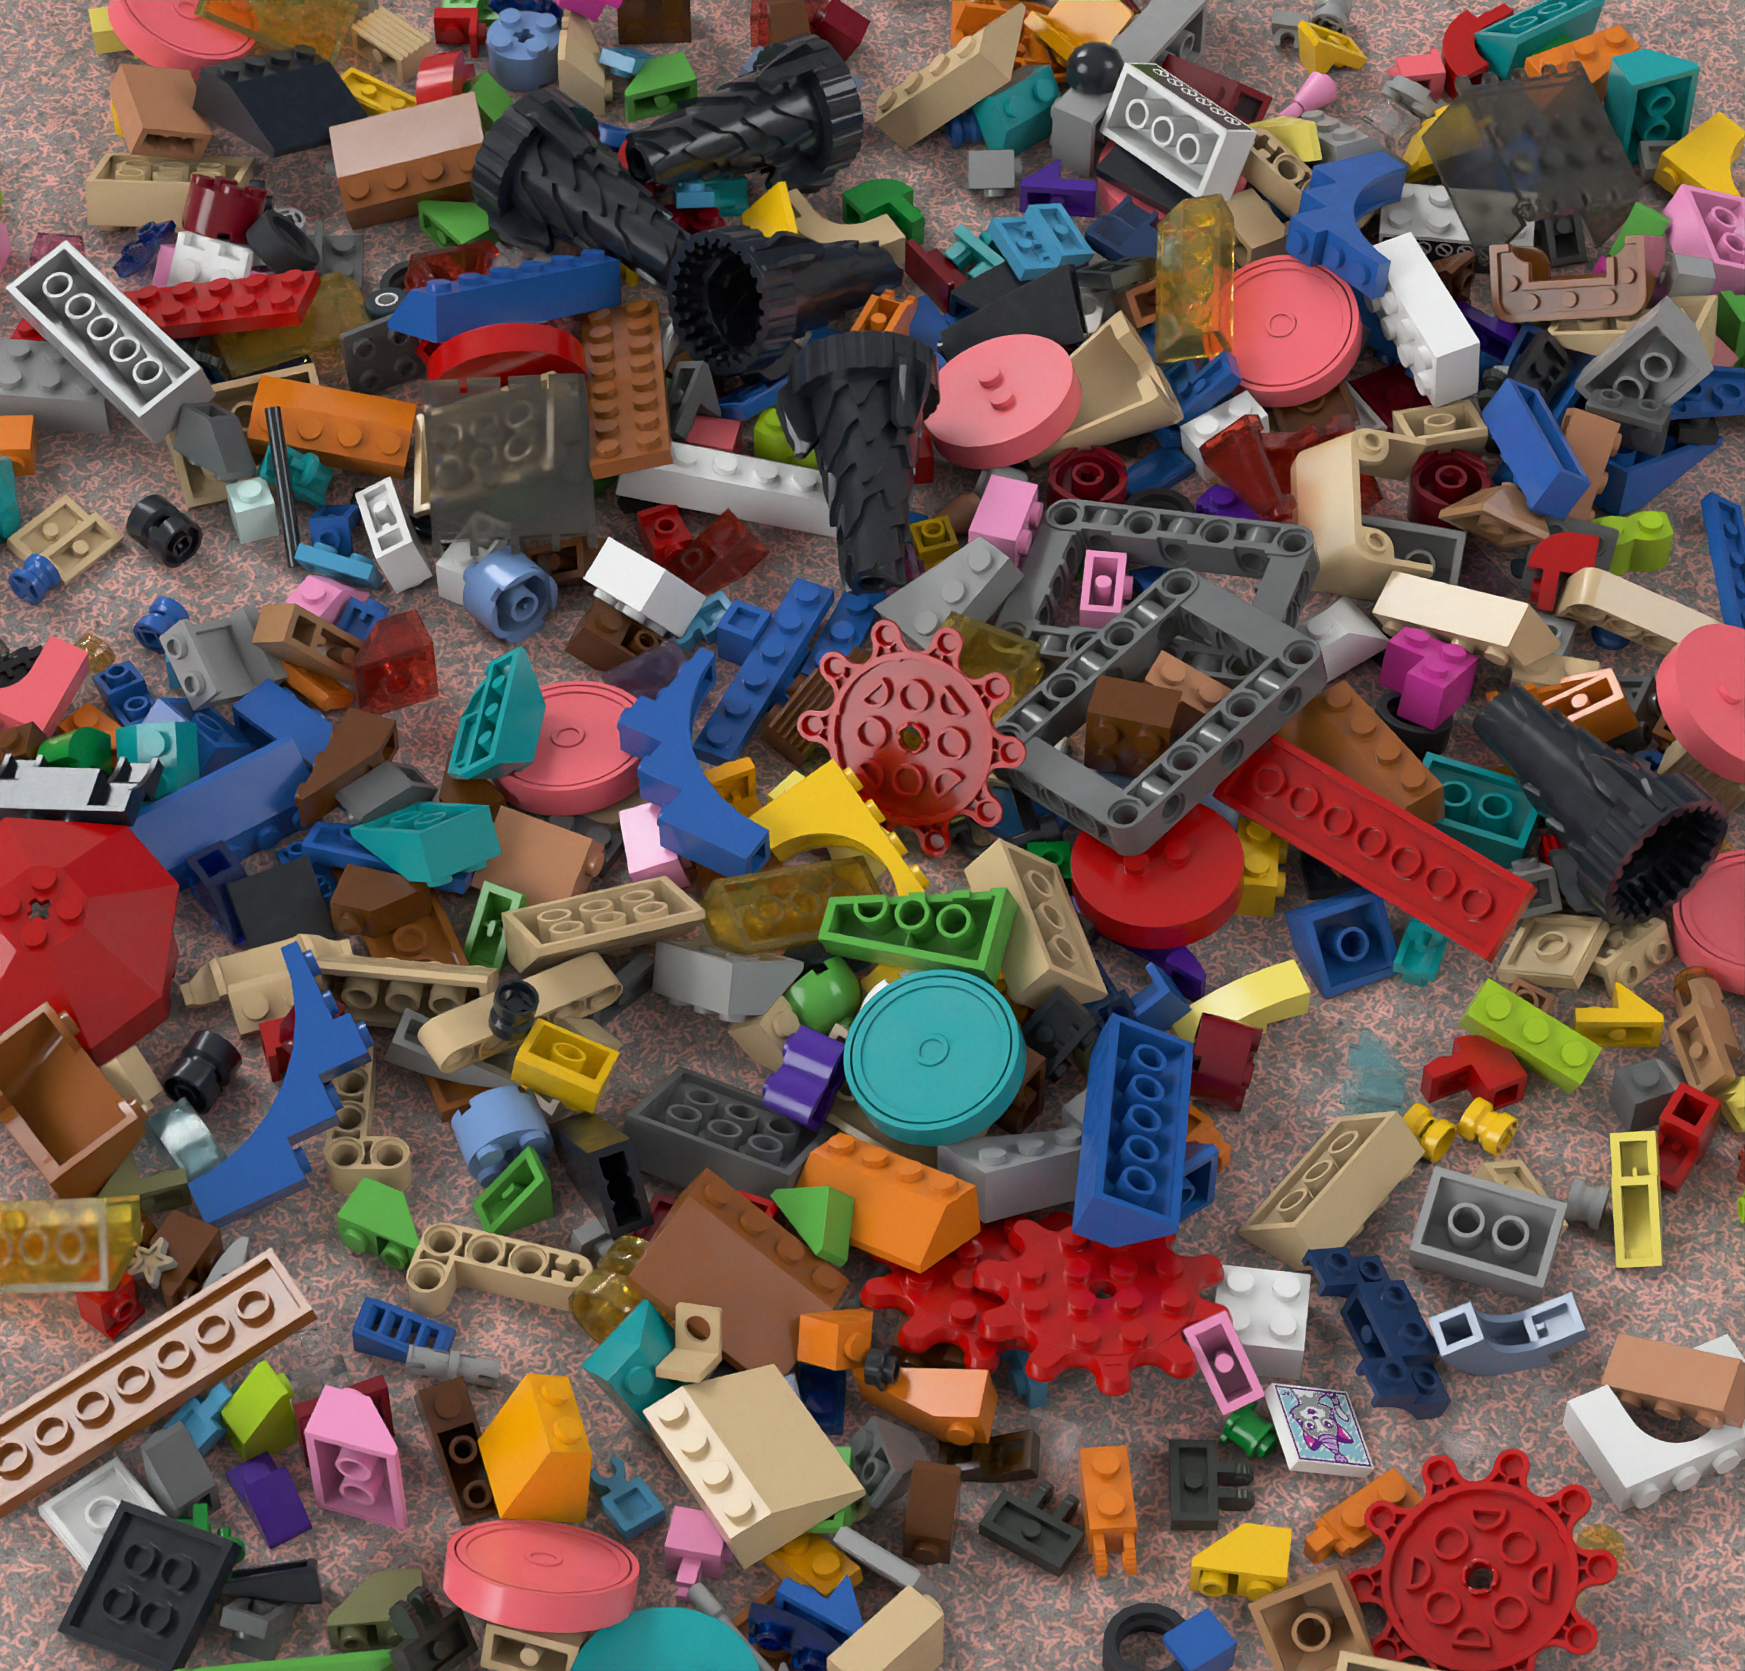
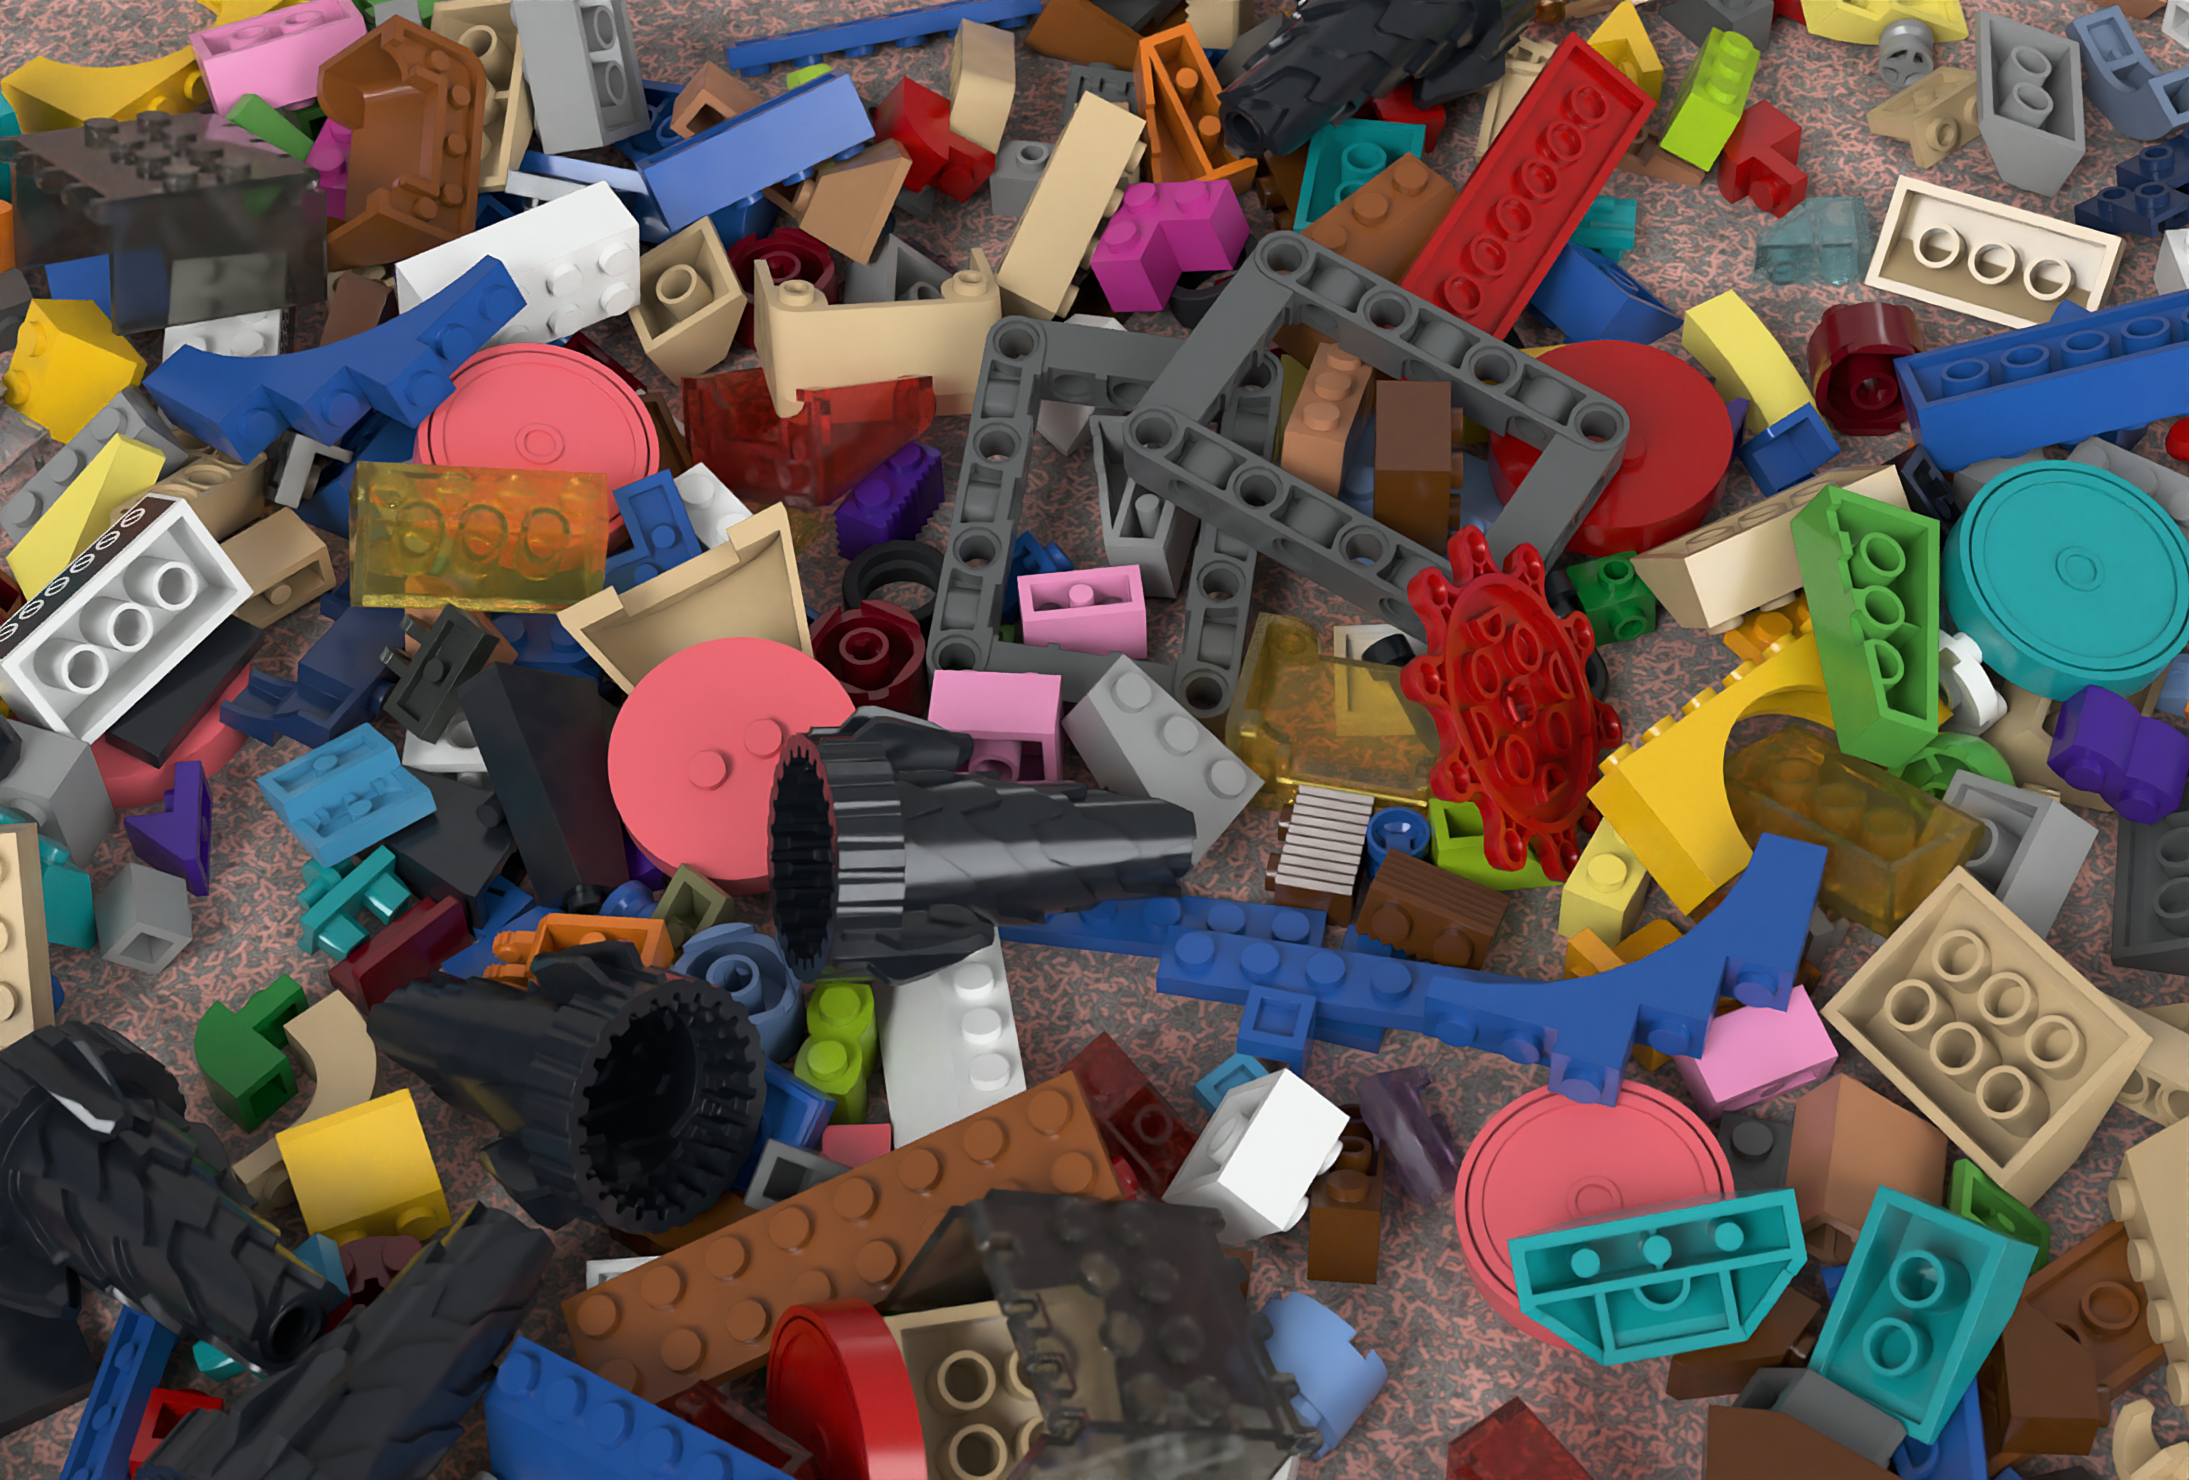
camera: 100 degrees left, 0 degrees up
(1432, 1134) = (1876, 180): yellow wheel -> none
(1490, 1128) = (1834, 143): yellow wheel -> none
(1544, 879) = (1459, 135): light grey brick -> none
(1642, 421) = (648, 97): dark grey bracket -> none

